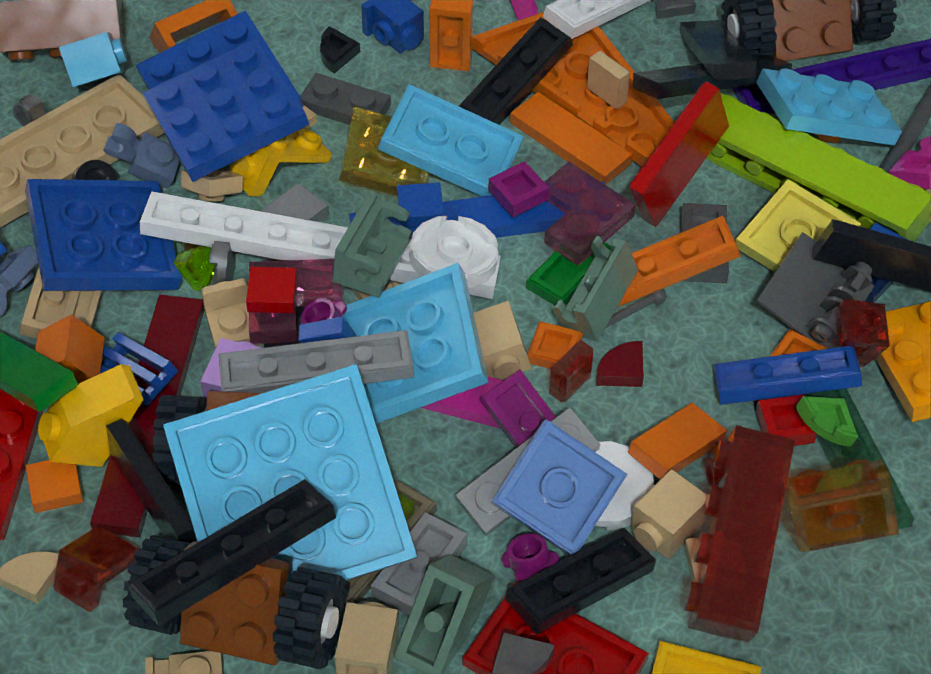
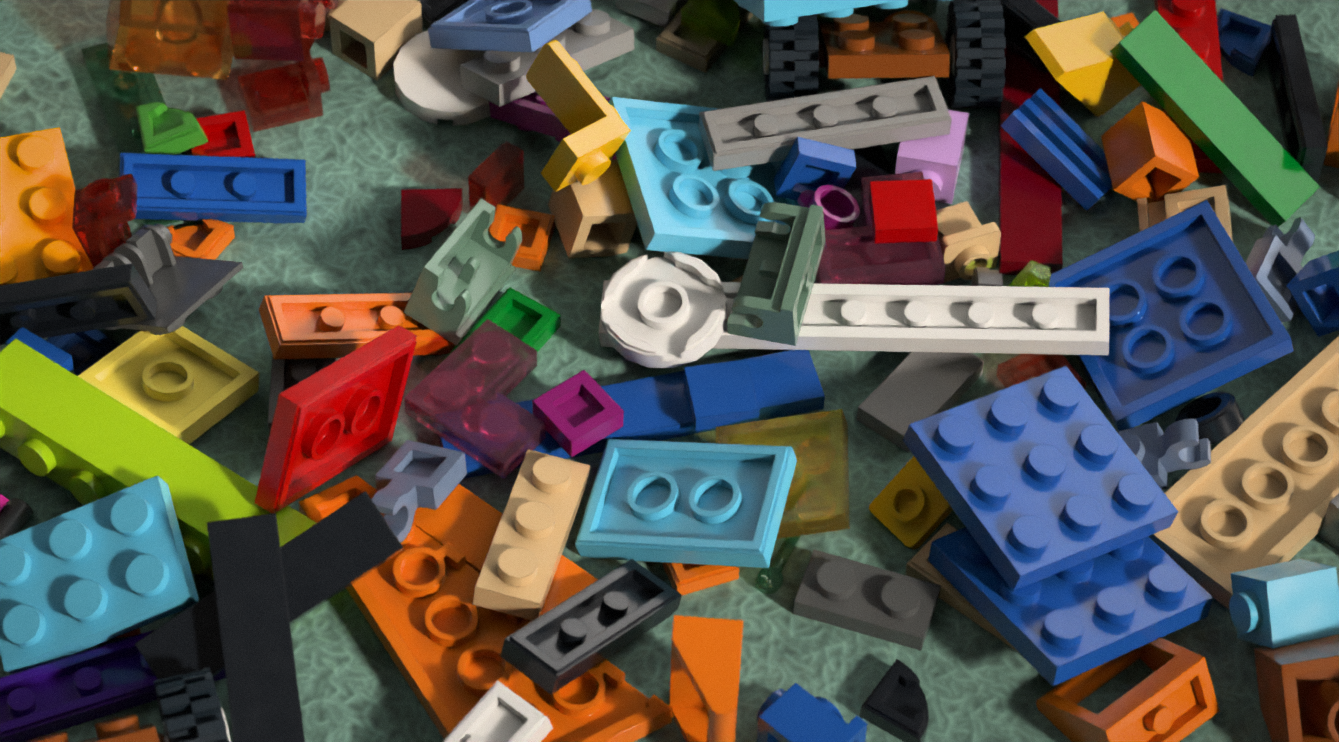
camera: 175 degrees right, 0 degrees up
(500, 329) = (584, 112): none -> yellow bracket
(553, 123) = (531, 535): none -> tan plate
(608, 79) = (442, 585): tan tile -> none
(626, 150) = (414, 479): none -> sand blue plate
(677, 441) = (361, 112): orange tile -> none

